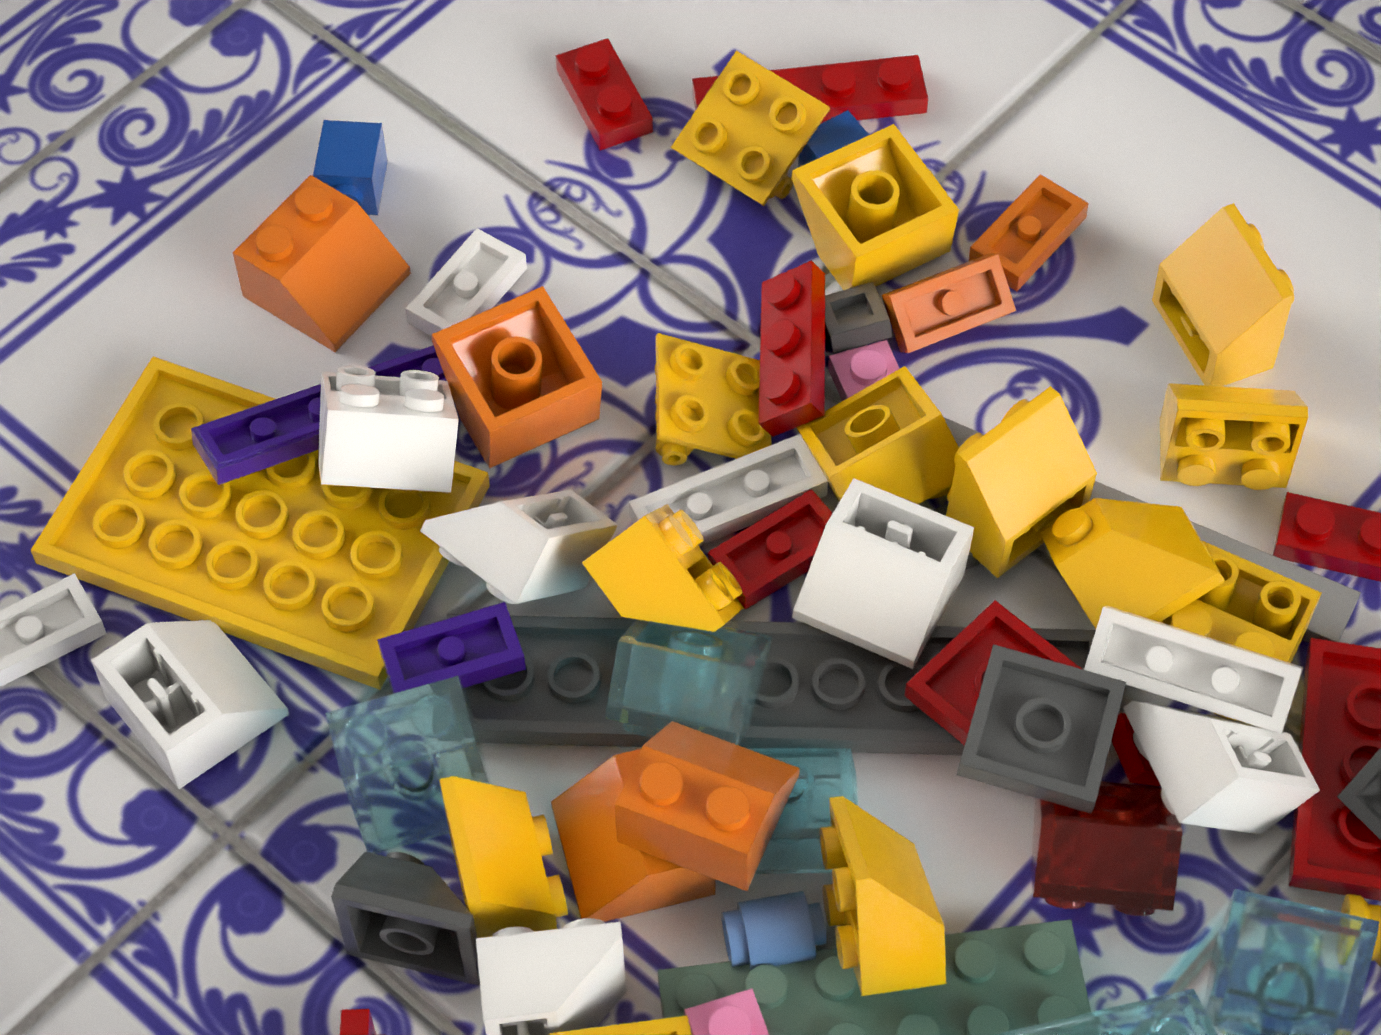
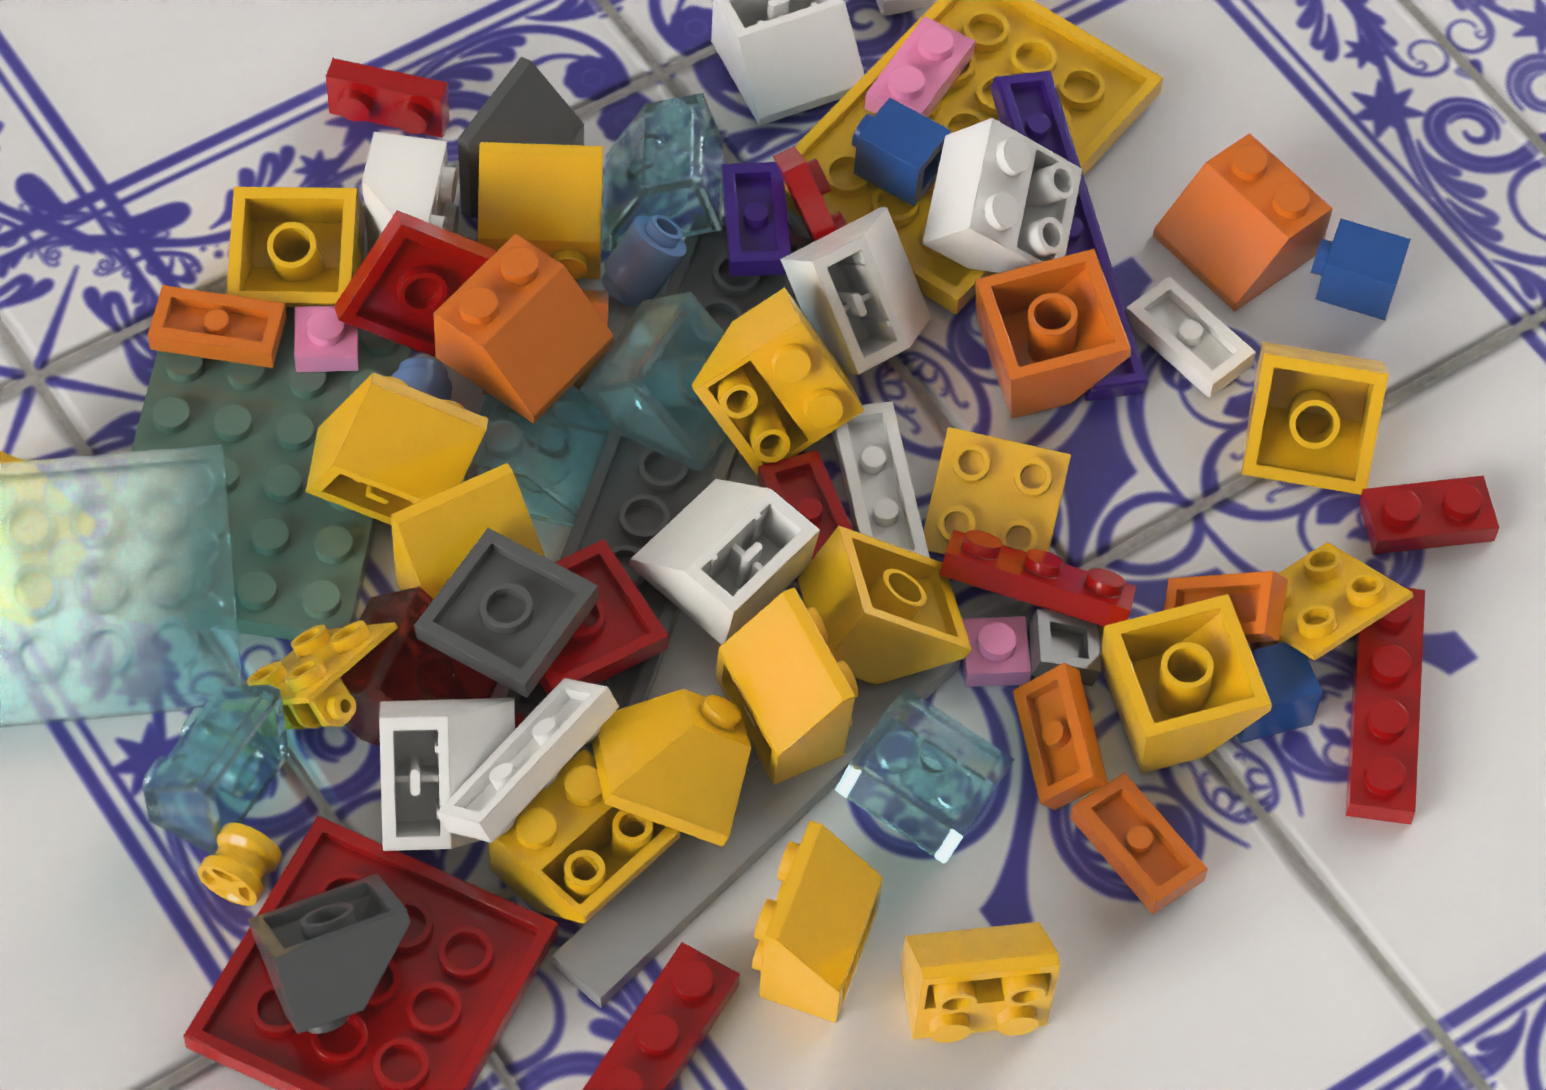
camera: 100 degrees right, 0 degrees up
(207, 557) = (922, 68): none -> bright pink plate
(330, 539) = (899, 151): none -> blue brick
(428, 597) = (807, 186): none -> red plate
(526, 754) = (643, 259): none -> medium blue brick
(531, 176) = (1314, 418): none -> yellow slope
(657, 924) = (408, 279): none -> red plate
(776, 213) = (1254, 595): none -> orange plate
(955, 822) = (443, 529): none -> yellow slope
(1024, 363) = (924, 774): none -> clear light blue slope
(1153, 907) = (312, 673): none -> yellow hinge

